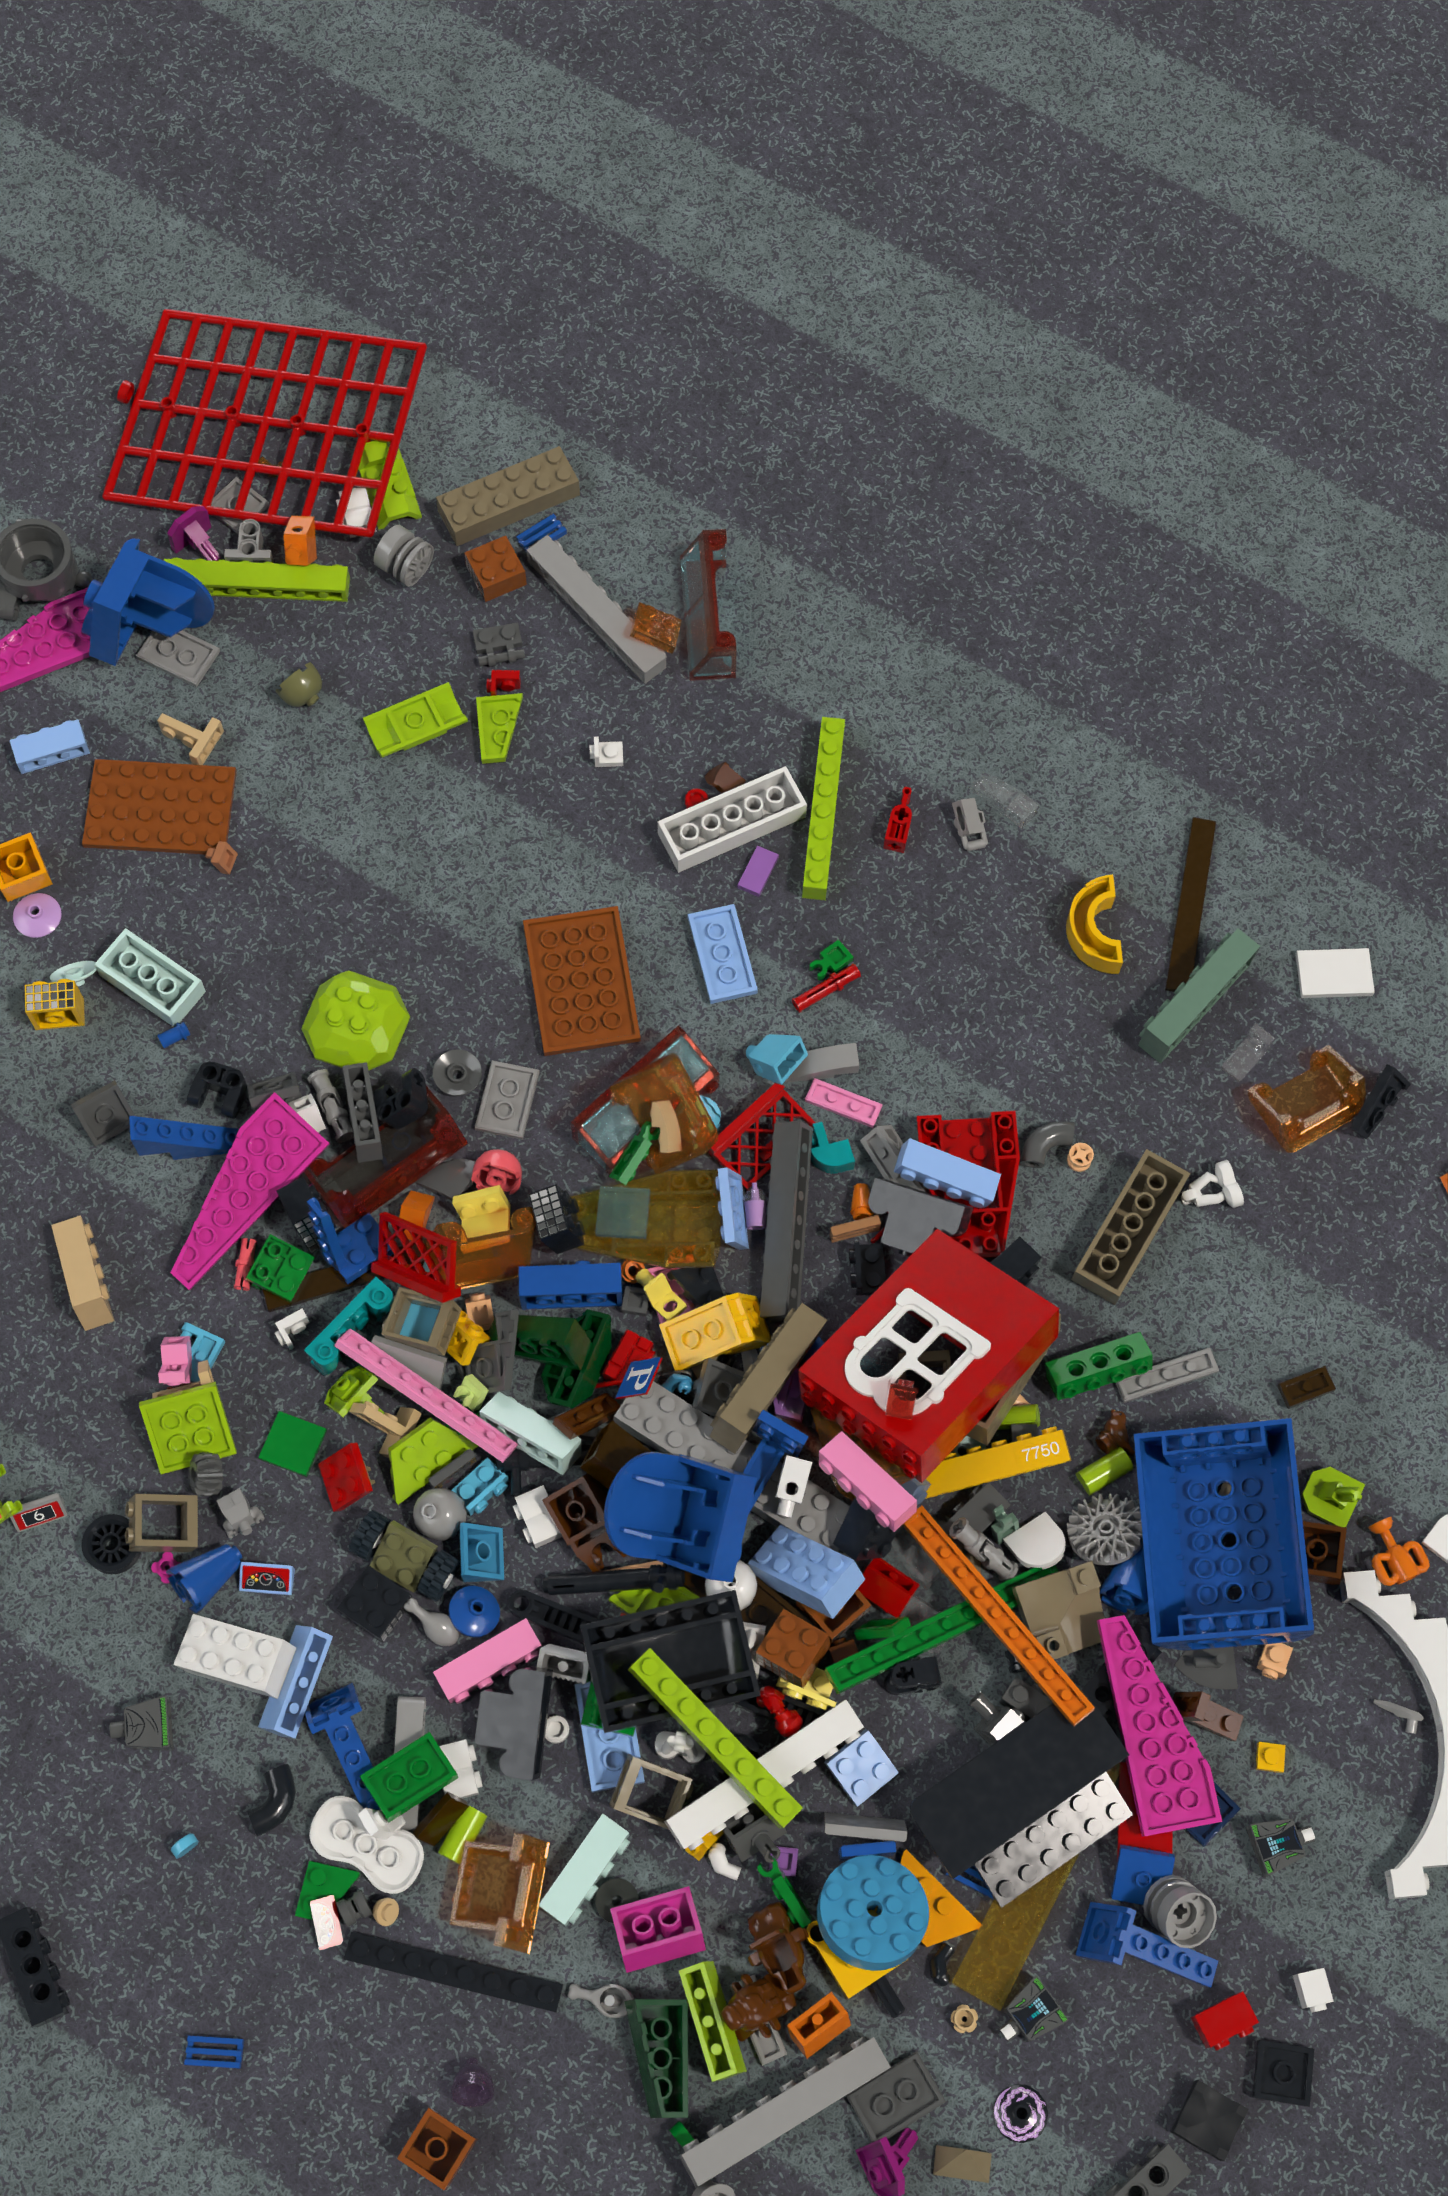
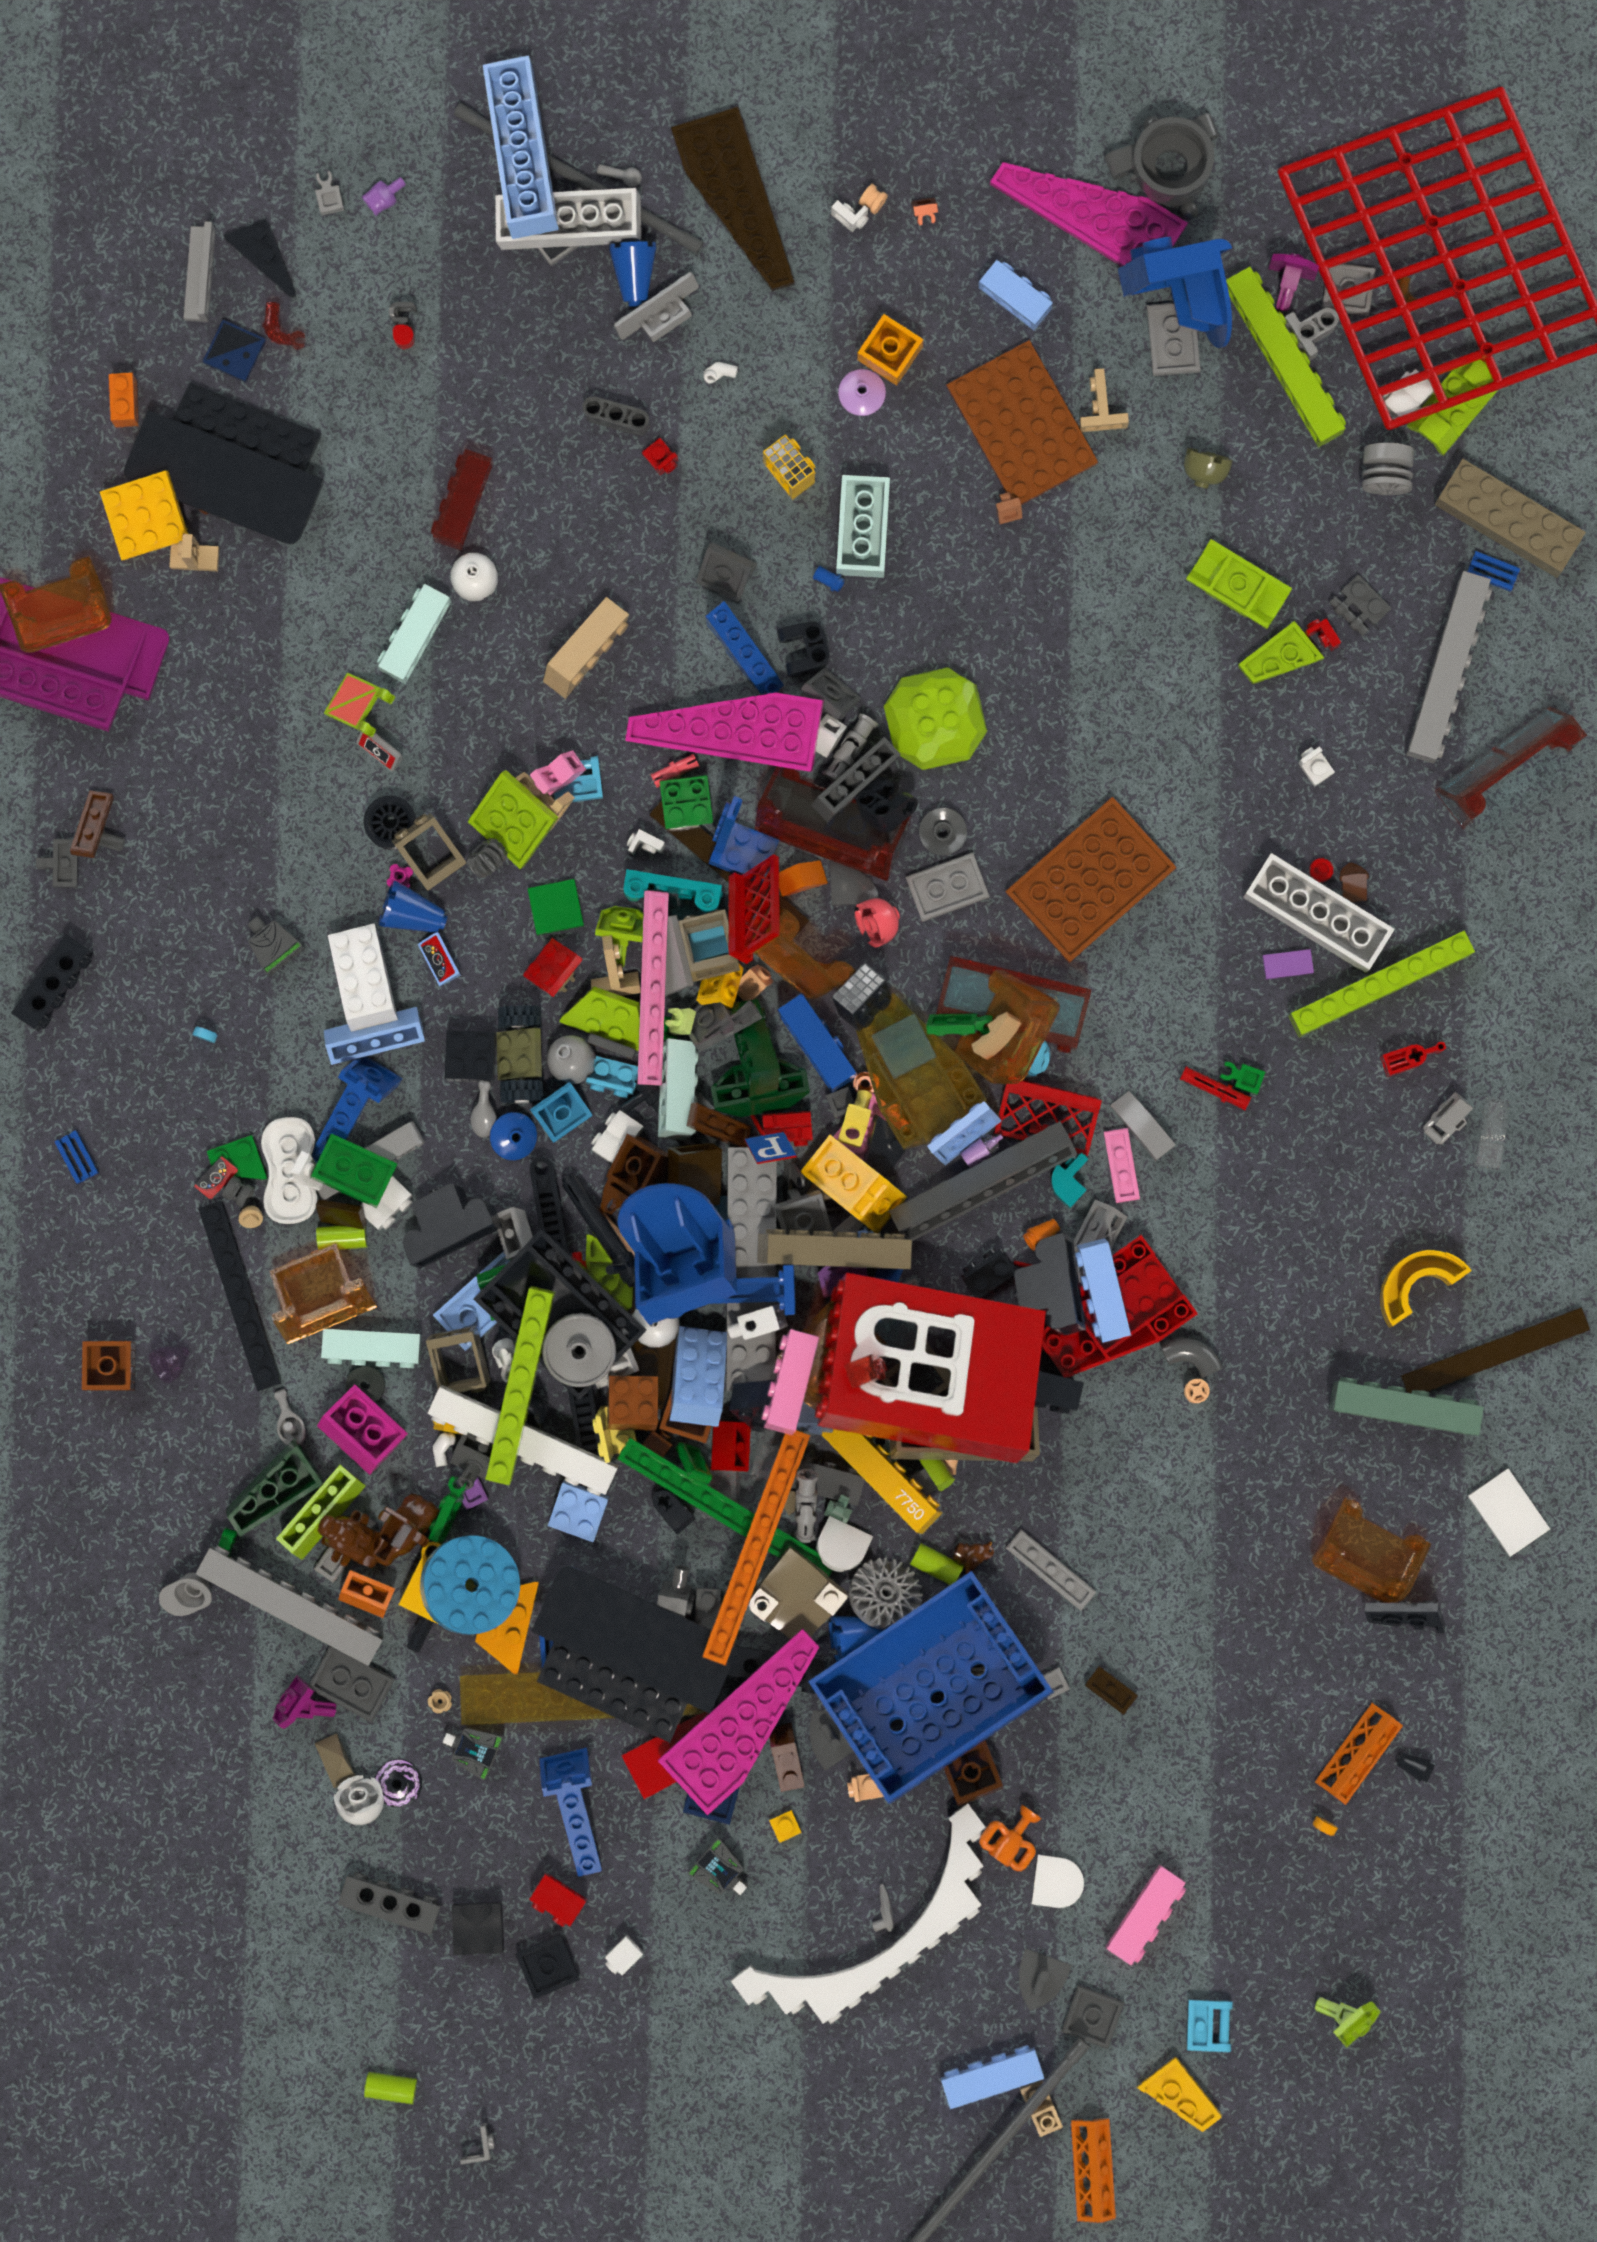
camera: 65 degrees right, 15 degrees up
(75, 972) = (828, 460): light aqua dish -> none
(125, 392) = (1394, 114): red tile -> none
(238, 1513) = (474, 904): light grey piece -> none
(279, 1800) = (278, 1083): black cylinder -> none
(294, 1199) = (746, 783): black brick -> none
(300, 546) = (1334, 377): orange torso -> none
(483, 1211) = (829, 937): light yellow bracket -> none
(488, 1661) = (482, 1172): bright pink brick -> none
(495, 568) = (1430, 555): dark orange brick -> none
(556, 1729) = (464, 1258): white tile -> none
(655, 627) = (1460, 732): clear orange plate -> none
(678, 1381) = (792, 1183): dark azure arm -> none
(722, 954) = (1190, 982): light blue plate -> none
(732, 1650) = (575, 1368): none -> light grey wheel
(777, 1056) = (1122, 1086): medium azure torso -> none
(787, 1721) = (575, 1432): red arm -> none
(855, 1228) = (1014, 1242): medium nougat tile -> none
(865, 1827) = (532, 1540): light grey tile -> none
(879, 1849) = (515, 1553): blue tile -> none
(938, 1965) = (466, 1658): black arm -> none
(1017, 2160) = (359, 1800): none -> white cylinder
(1099, 1366) = (1033, 1510): green brick -> none
(1130, 1227) = (1158, 1468): dark tan brick -> none
(1138, 1871) = (628, 1777): blue plate -> none
(1180, 1911) = (616, 1820): light grey wheel -> none
(1225, 1178) = (1254, 1520): white piece -> none
(1248, 1053) = (1380, 1479): clear bracket -> none
(1331, 1496) = (1029, 1760): lime piece -> none

